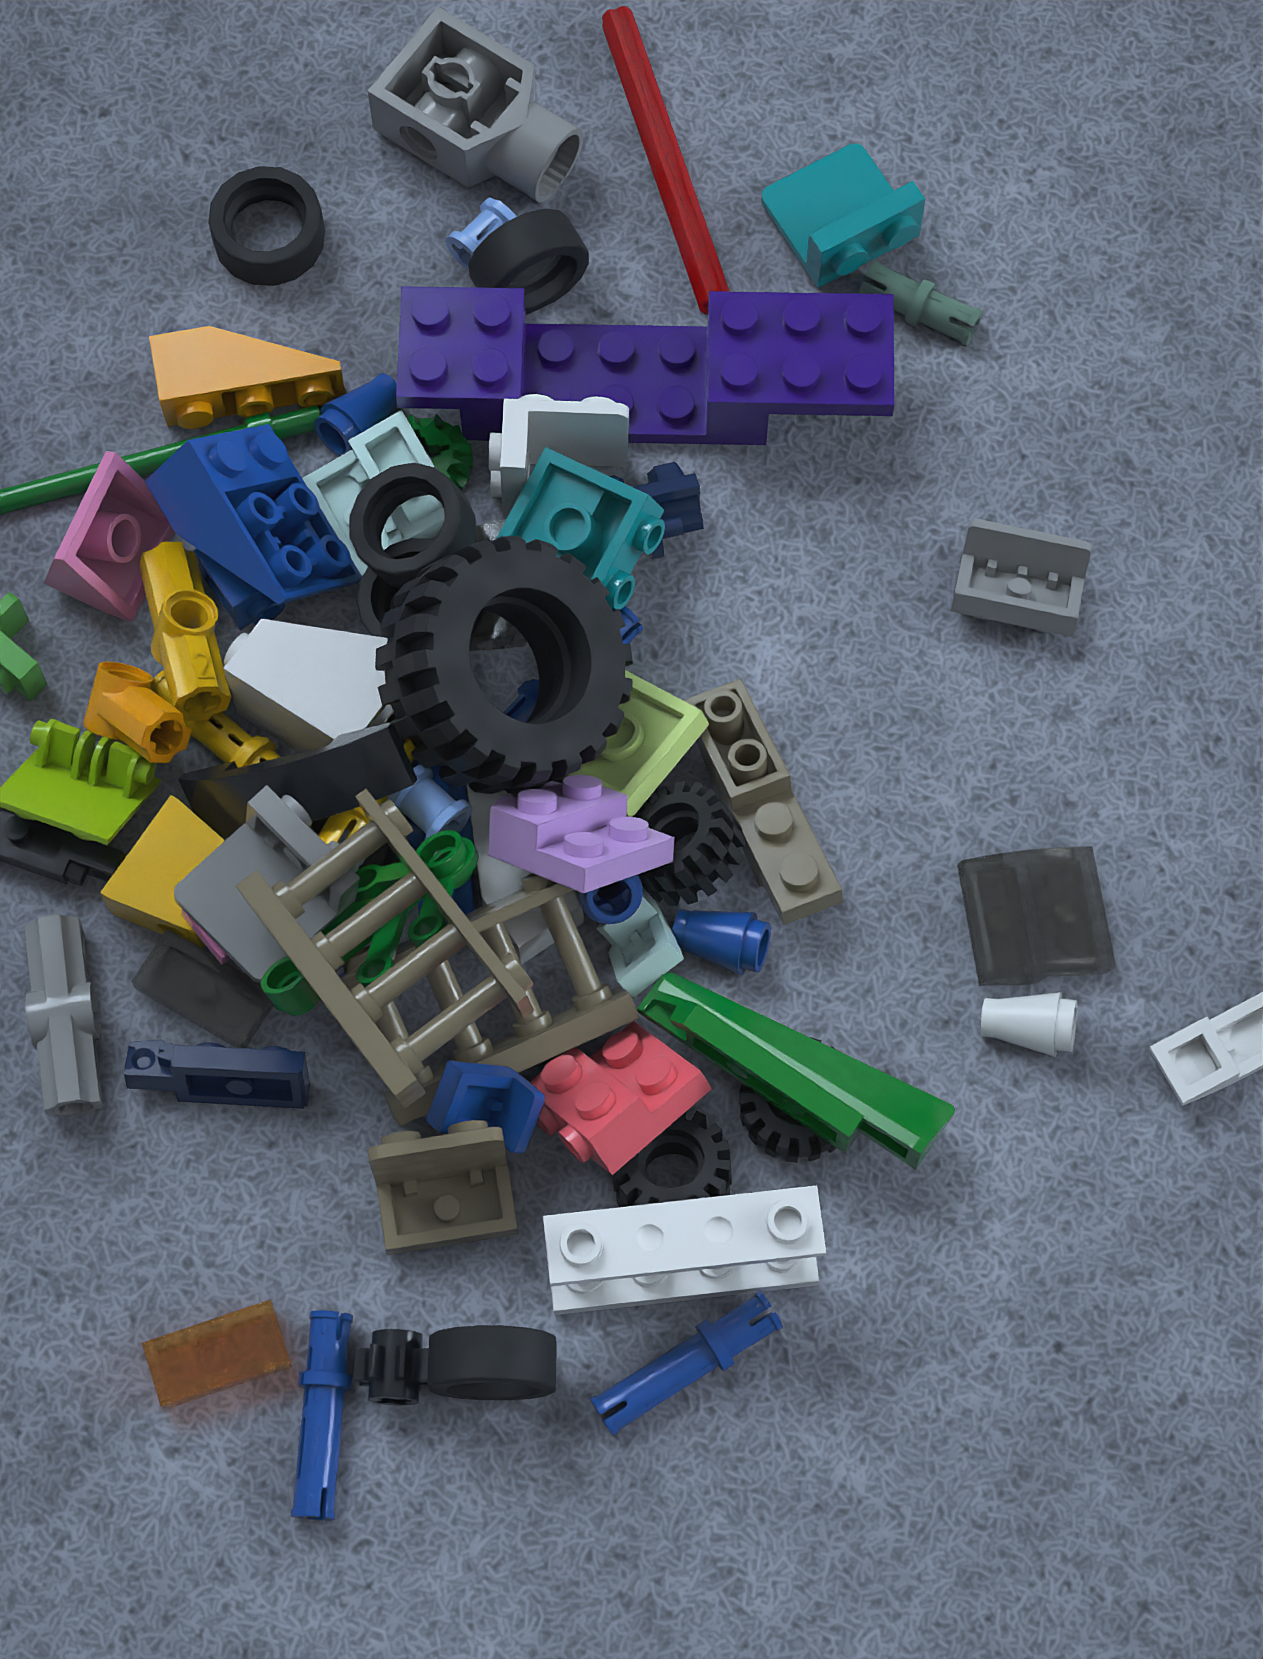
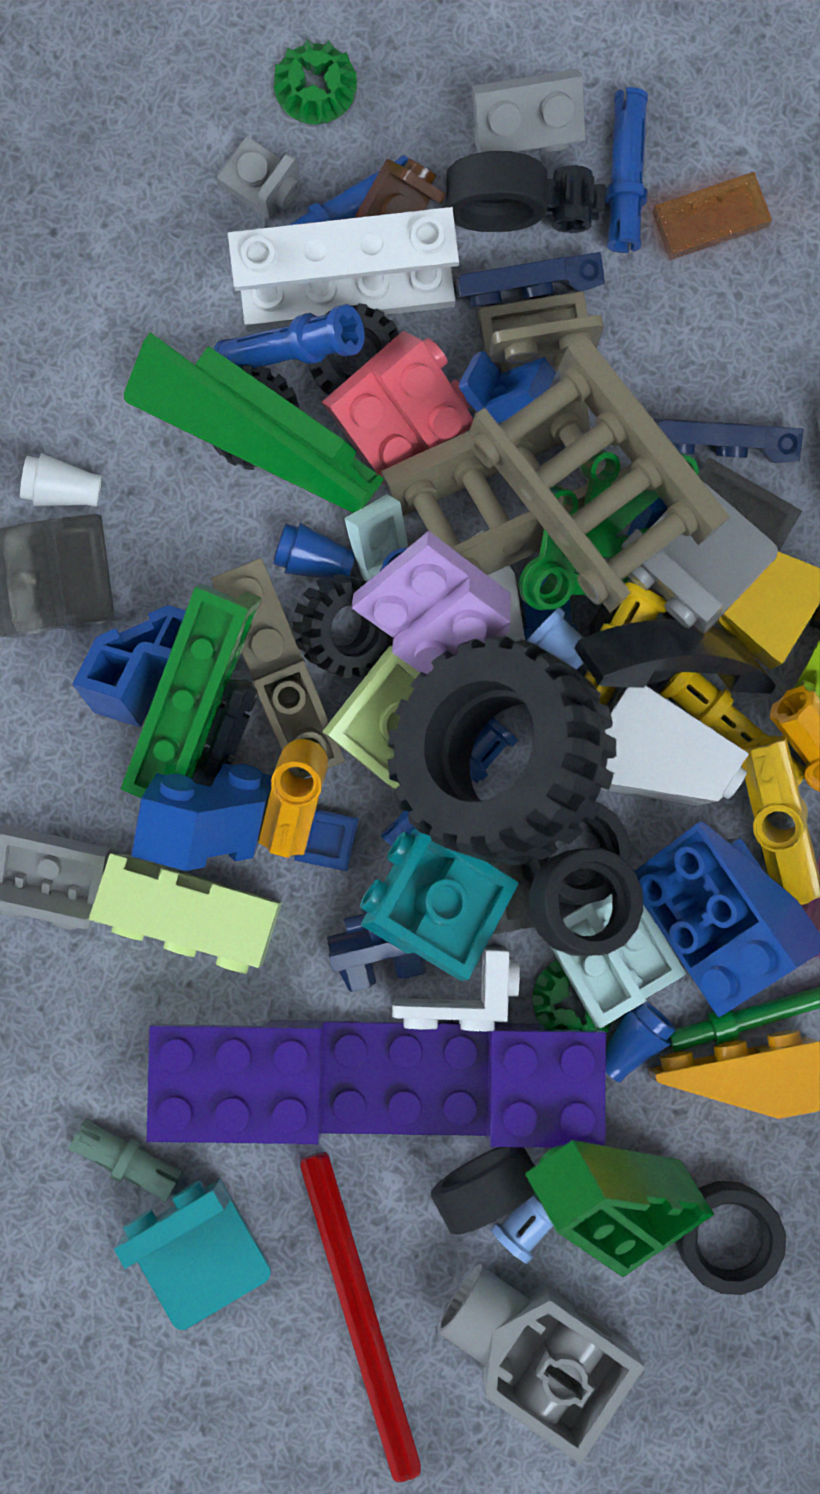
camera: 175 degrees right, 15 degrees up
(389, 239) = (617, 1201): none -> green wedge
(447, 1466) = (530, 113): none -> light grey bracket
(455, 1271) = (533, 279): none -> dark blue hinge
(616, 1364) = (400, 190): none -> reddish brown bracket
(704, 627) = (330, 841): none -> blue tile
(722, 1574) = (311, 103): none -> green gear
(730, 1158) = (305, 339): none -> blue pin
(740, 650) = (293, 799): none -> light orange piece
(793, 1408) = (261, 178): none -> light grey bracket
(819, 733) = (228, 726): none -> black axle
(851, 612) = (190, 822): none -> blue brick
(860, 540) = (185, 912): none -> yellowish green wedge
(860, 747) = (191, 686): none -> green fence
(936, 799) = (127, 667): none -> blue brick

